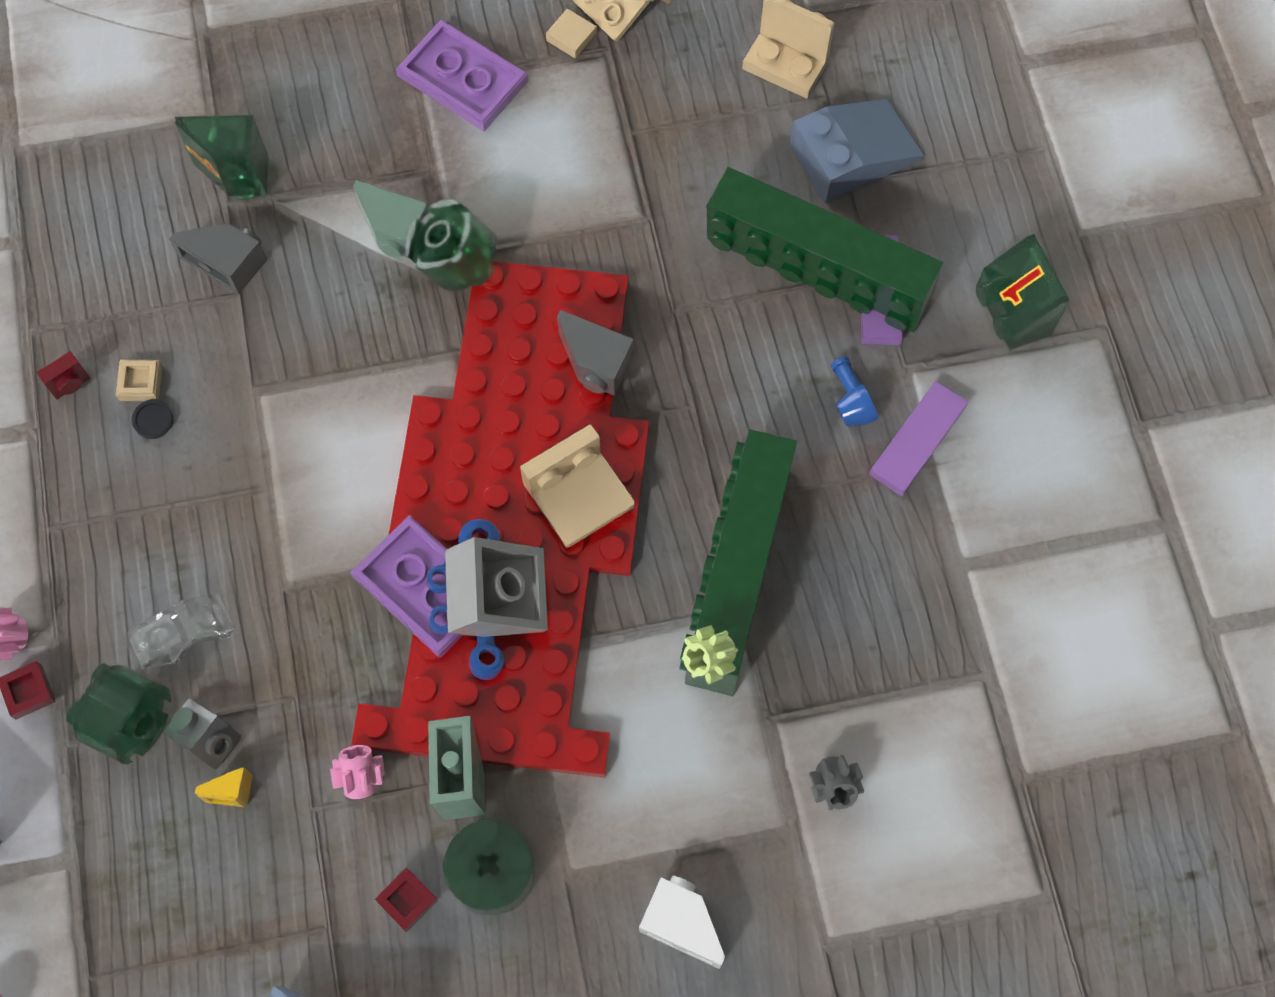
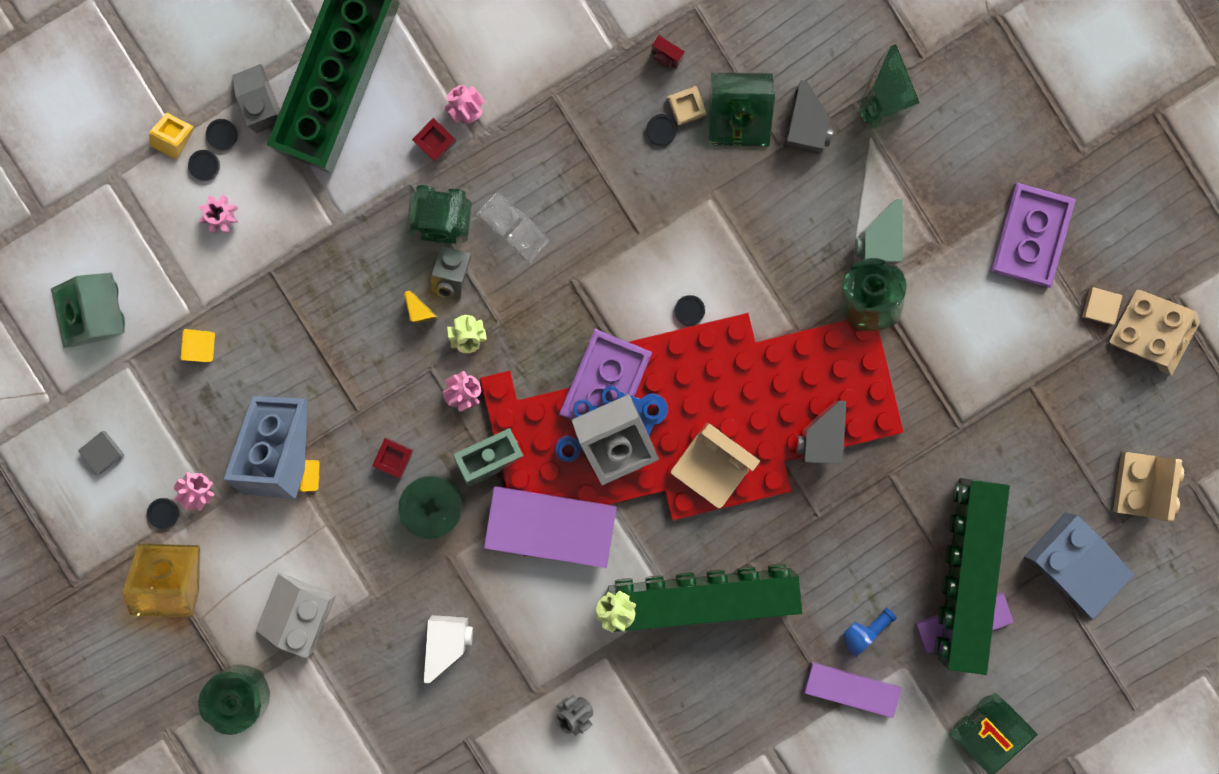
camera: 70 degrees right, 20 degrees up
(171, 319) = (741, 109): none -> clear green slope
(287, 738) = (466, 334): none -> yellowish green gear
(381, 463) = (689, 310): none -> black piece
(577, 721) = (550, 527): none -> medium lavender tile

